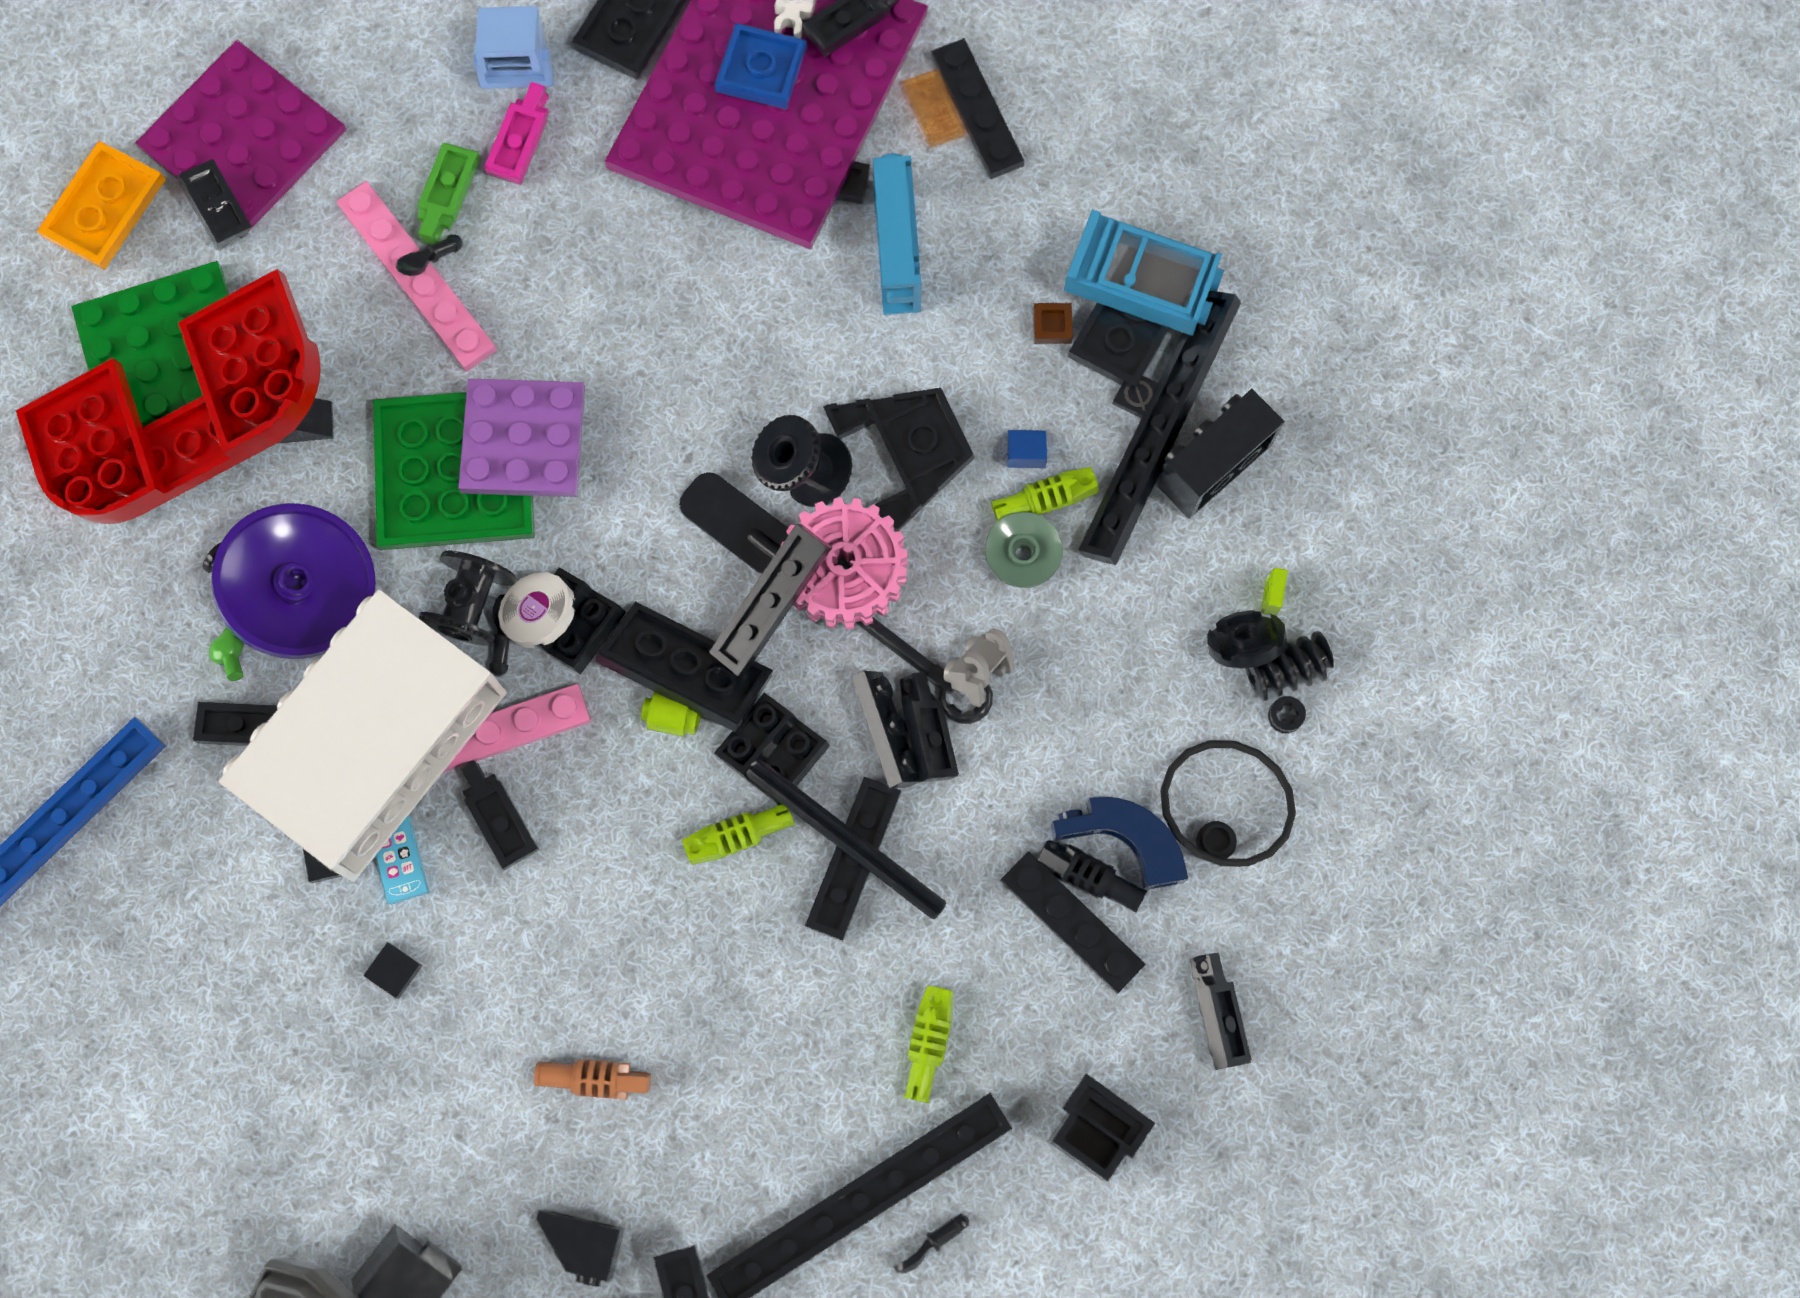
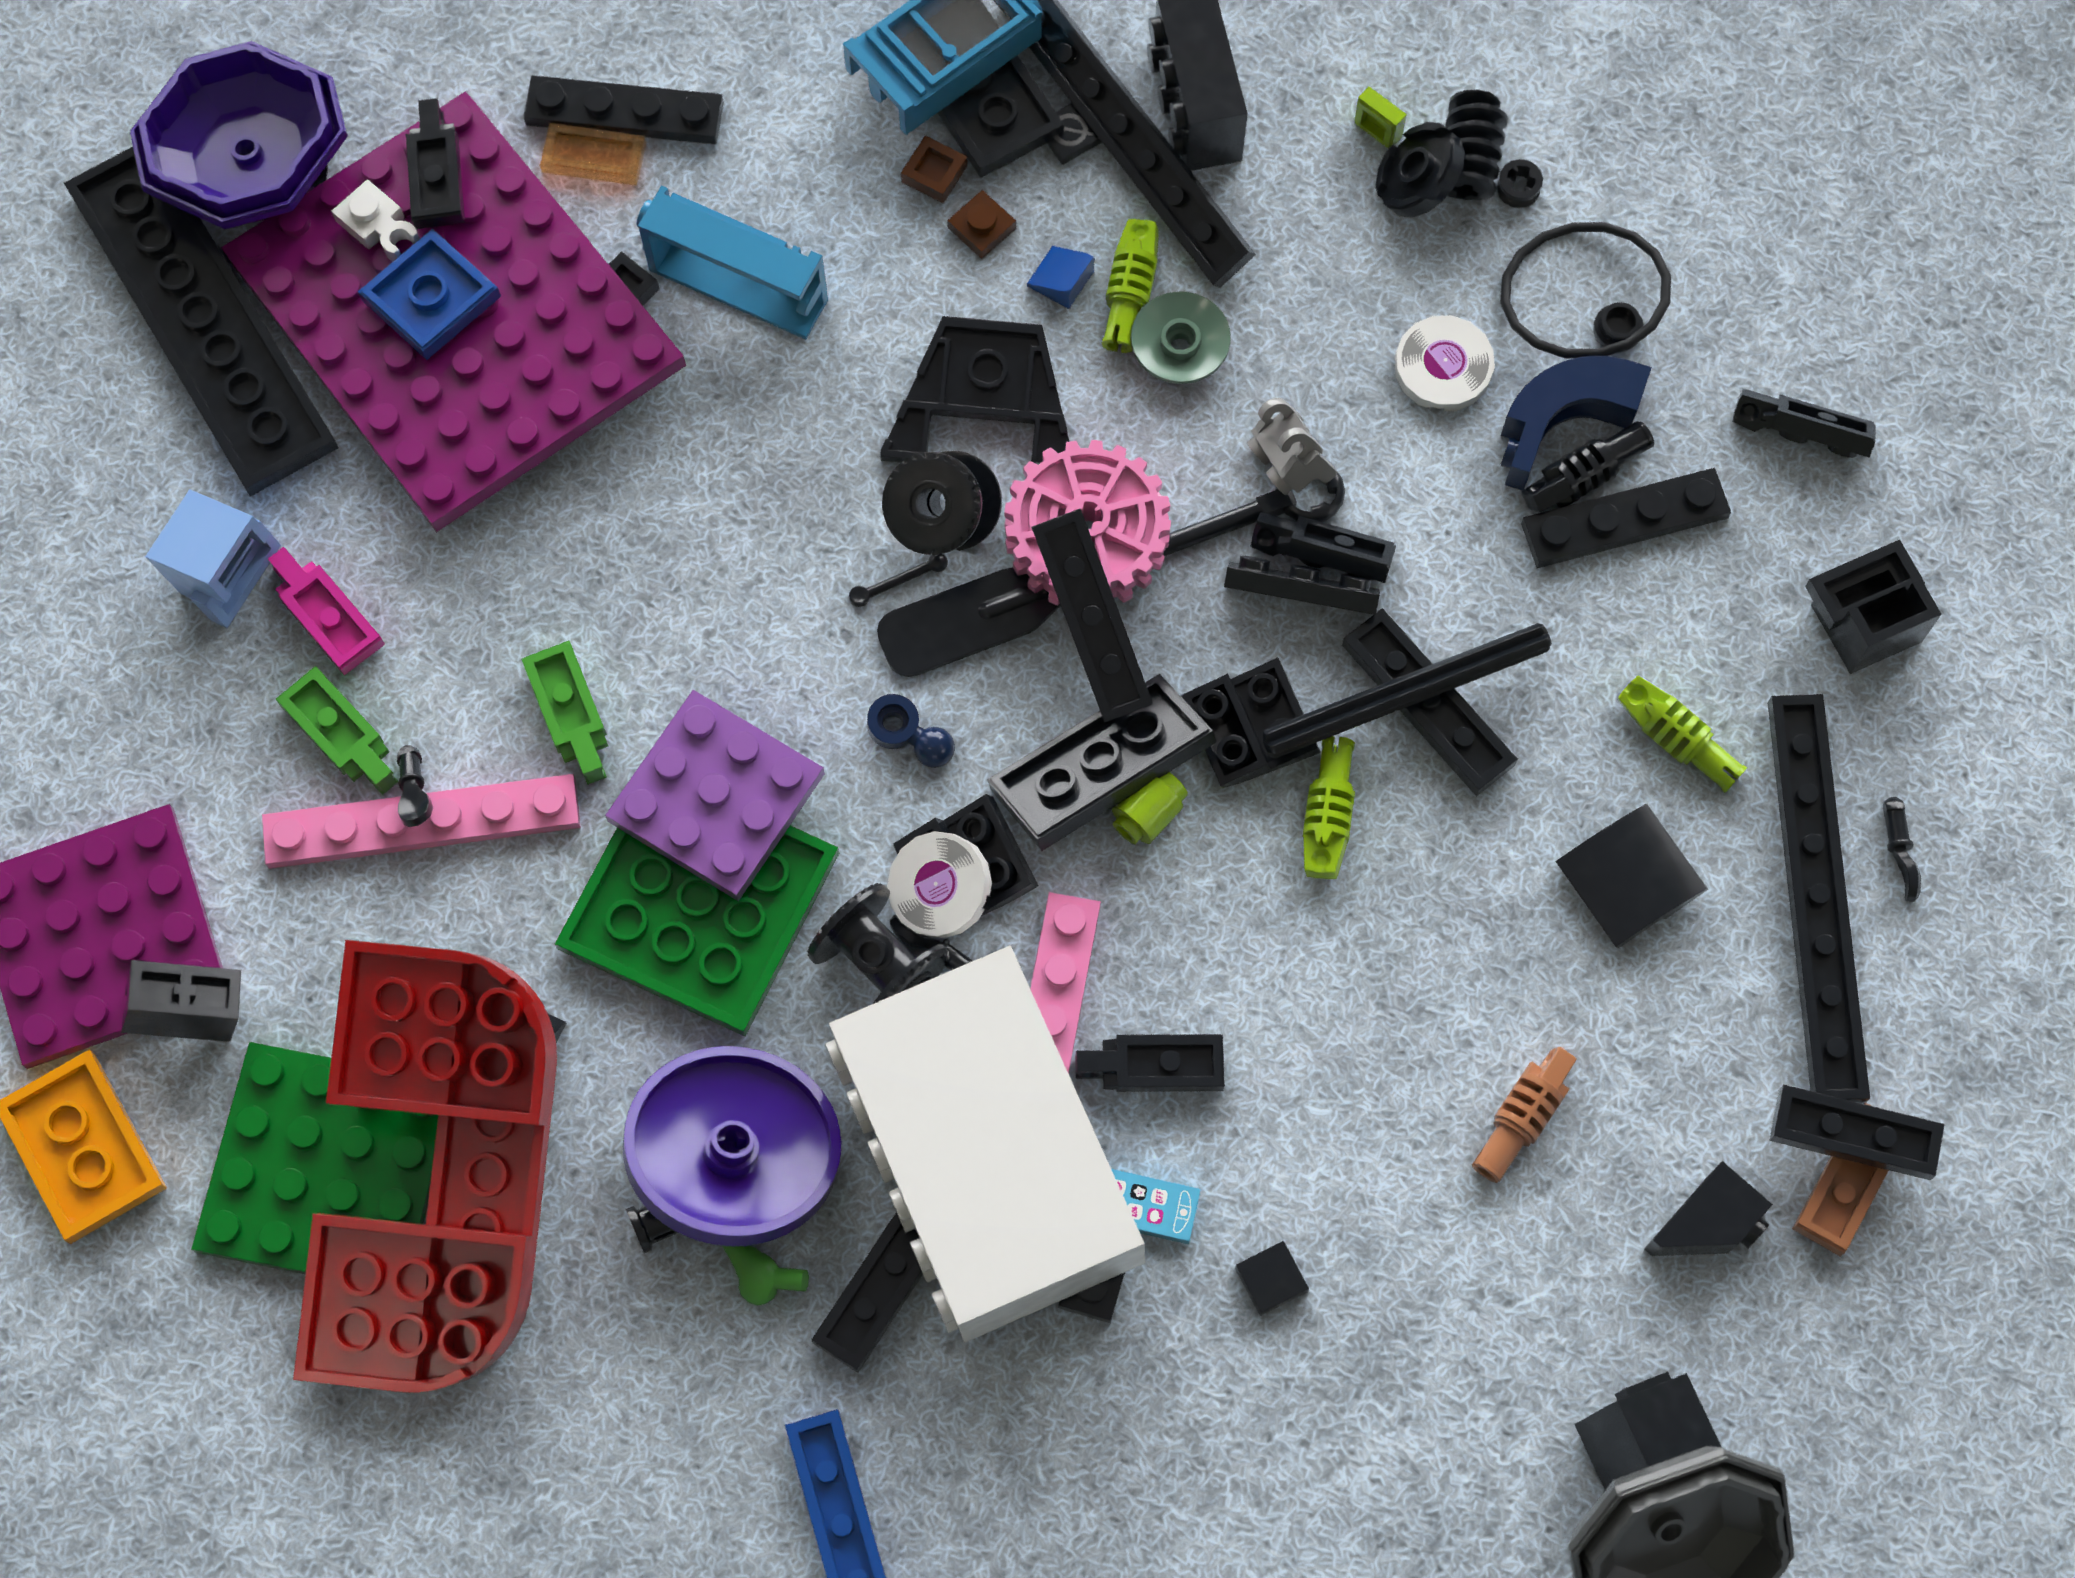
camera: 60 degrees left, 5 degrees down
(536, 317) = (568, 707): none -> bright green hinge
(639, 554) = (932, 745): none -> dark blue plate
(721, 451) = (860, 595): none -> black hinge
(802, 1063) = (1631, 875): none -> black slope
(1033, 376) = (981, 224): none -> reddish brown plate
(1116, 736) = (1444, 363): none -> white tile

